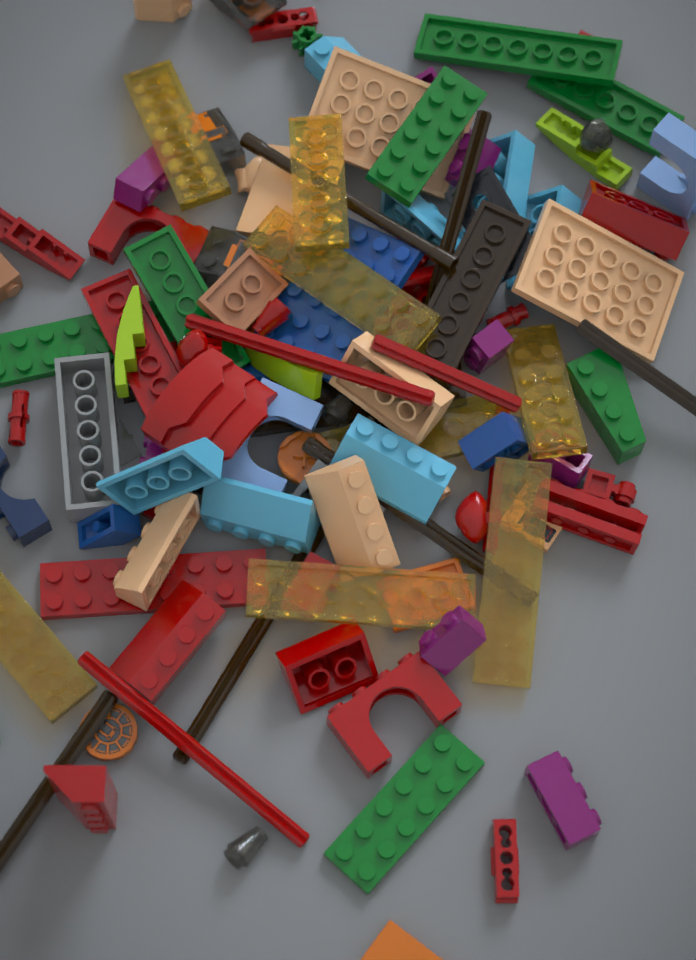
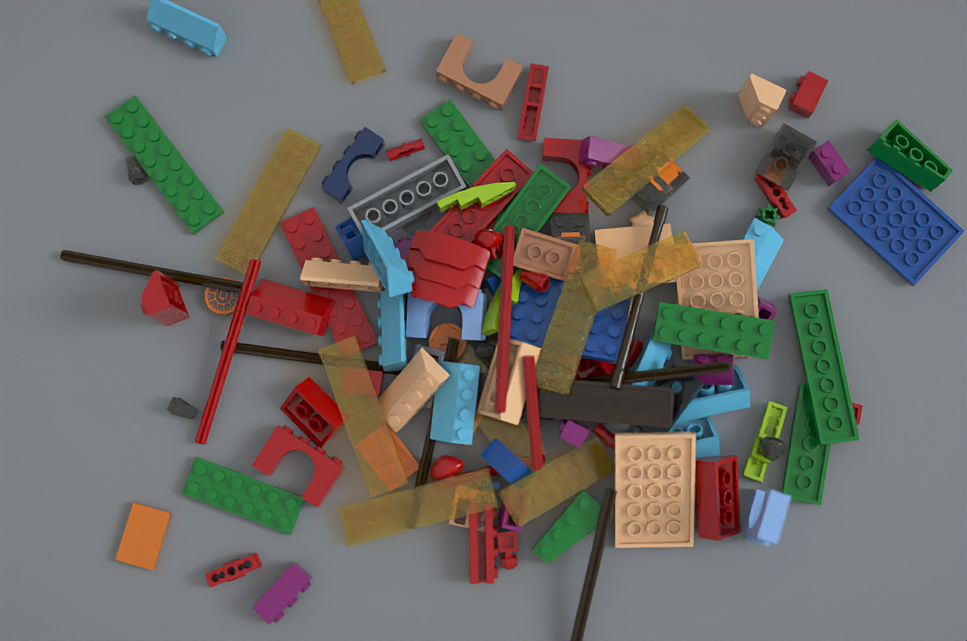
camera: 70 degrees right, 15 degrees up
(452, 640) = (355, 485): magenta brick -> none

